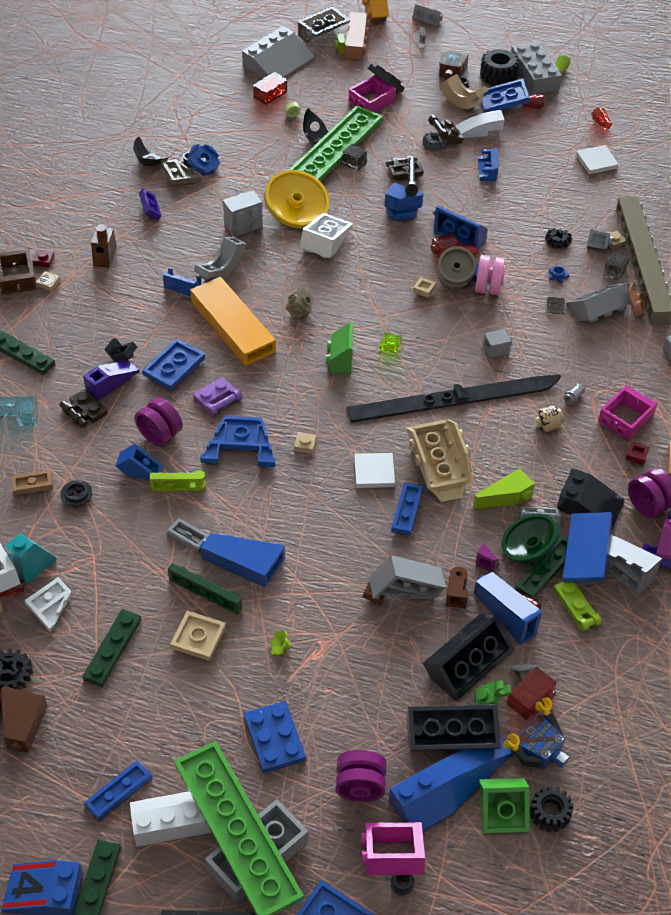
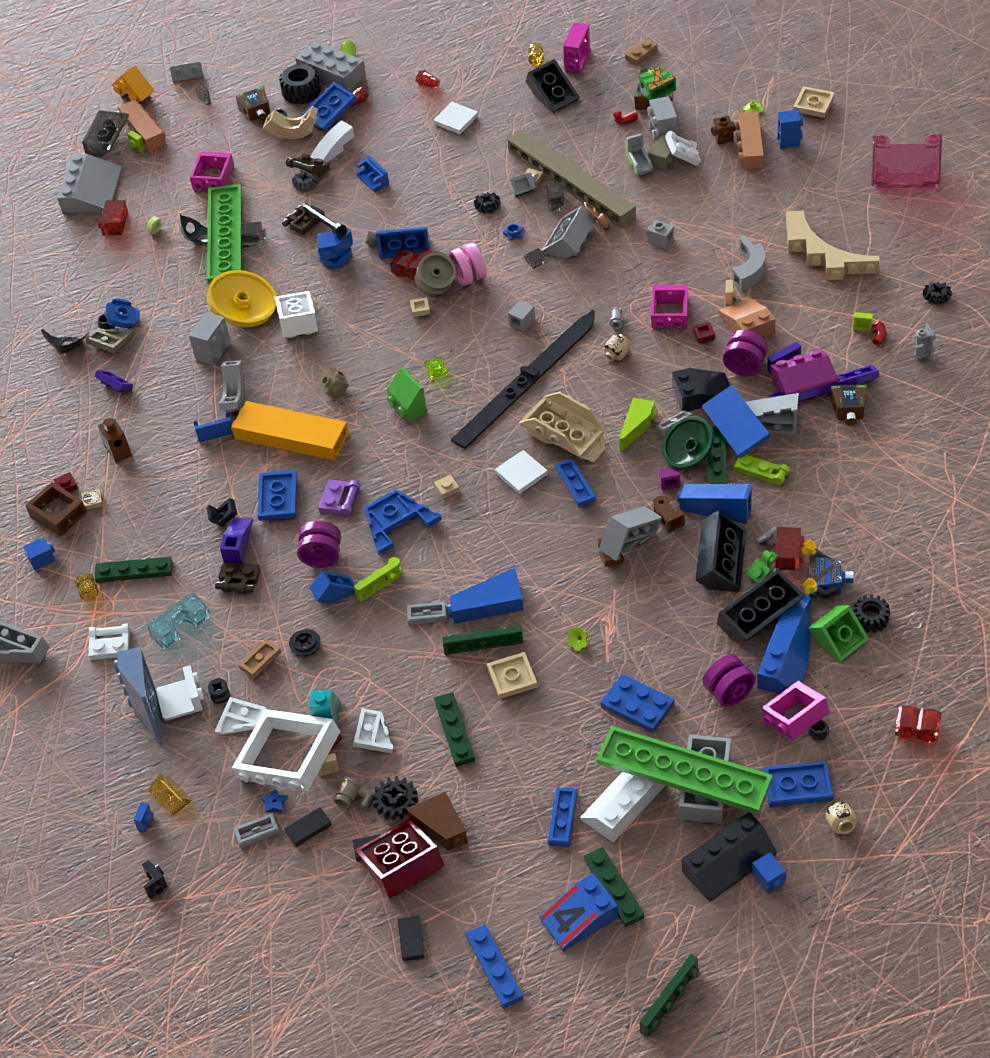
camera: 30 degrees left, 0 degrees up
(387, 77) = (209, 147): black plate -> none

